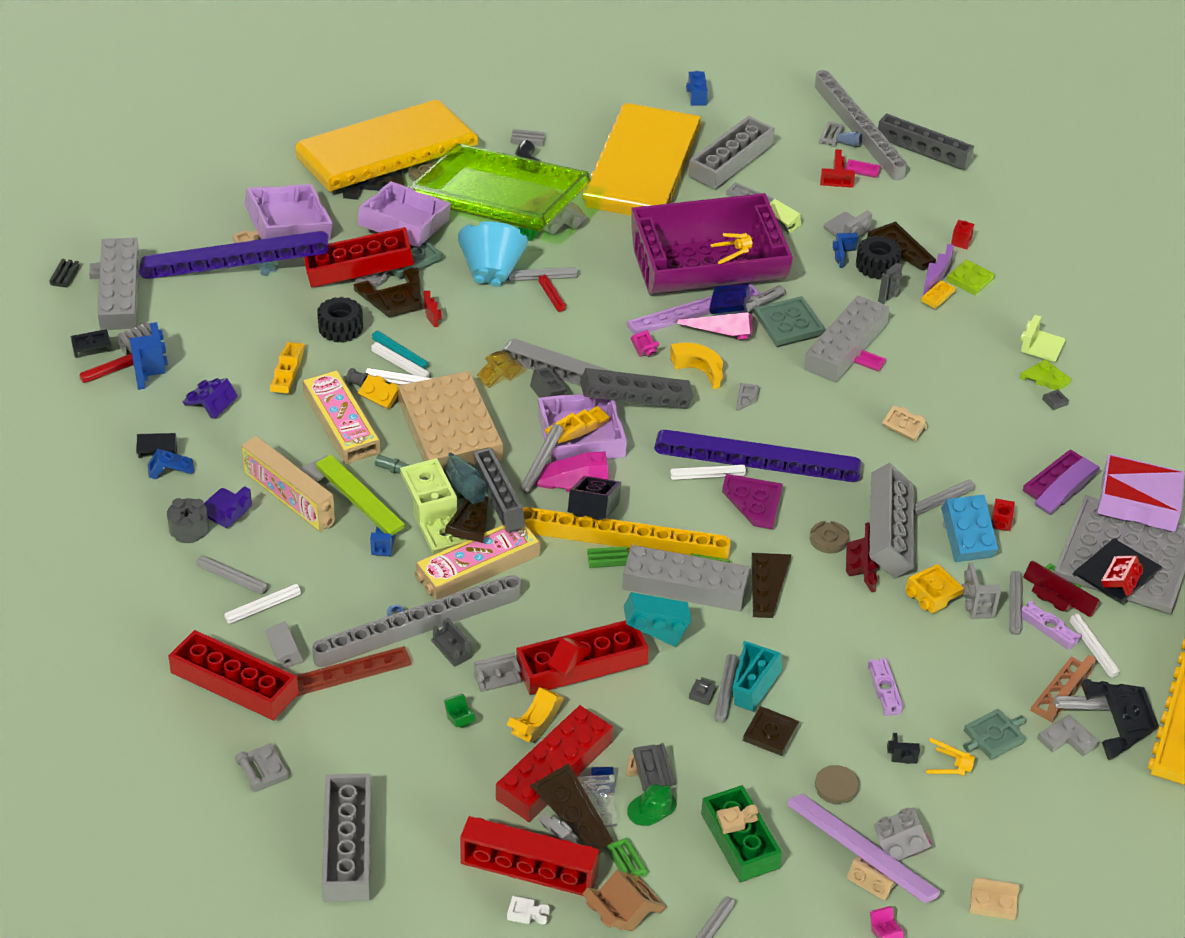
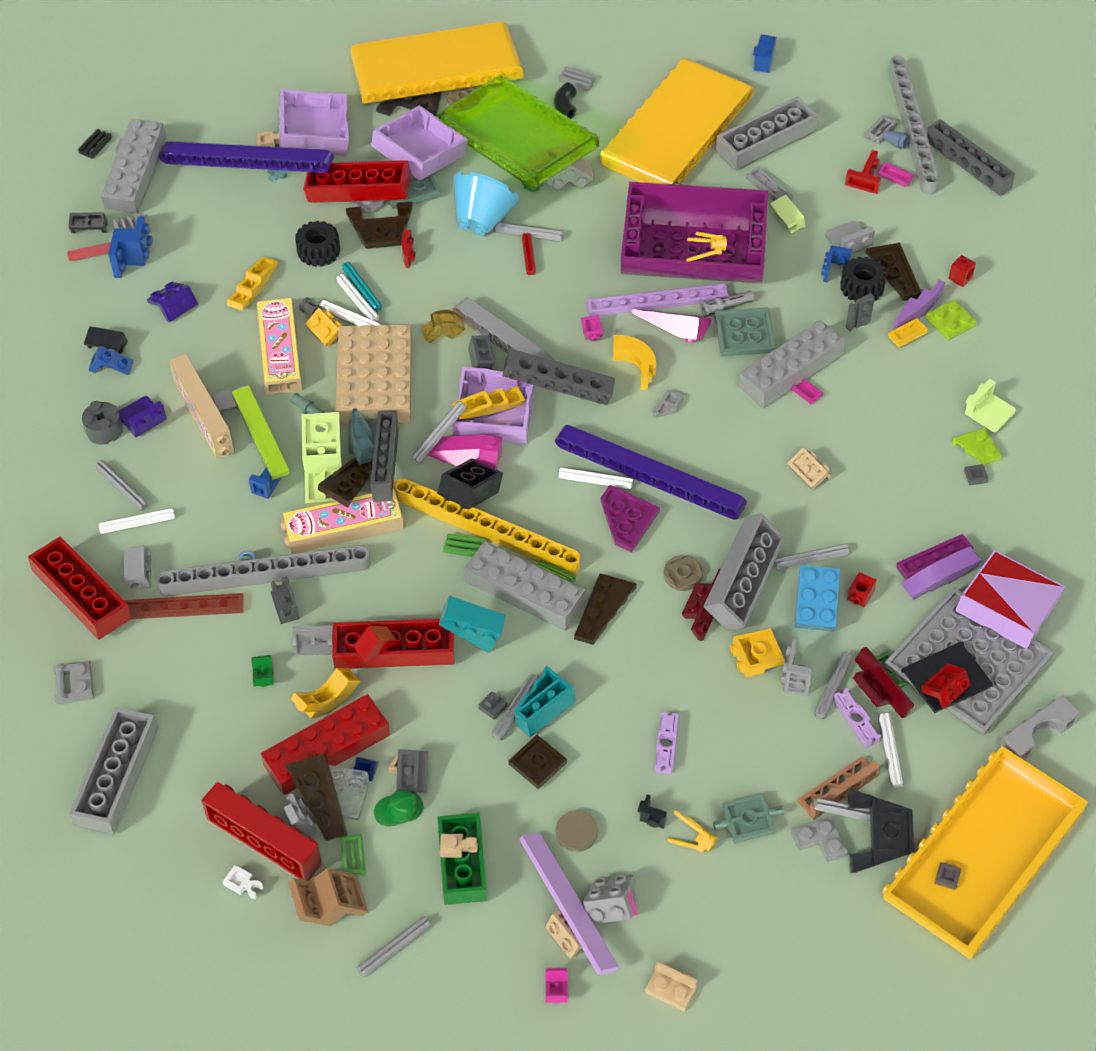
camera: 20 degrees right, 10 degrees up
(729, 298) = (692, 296): clear blue tile -> none

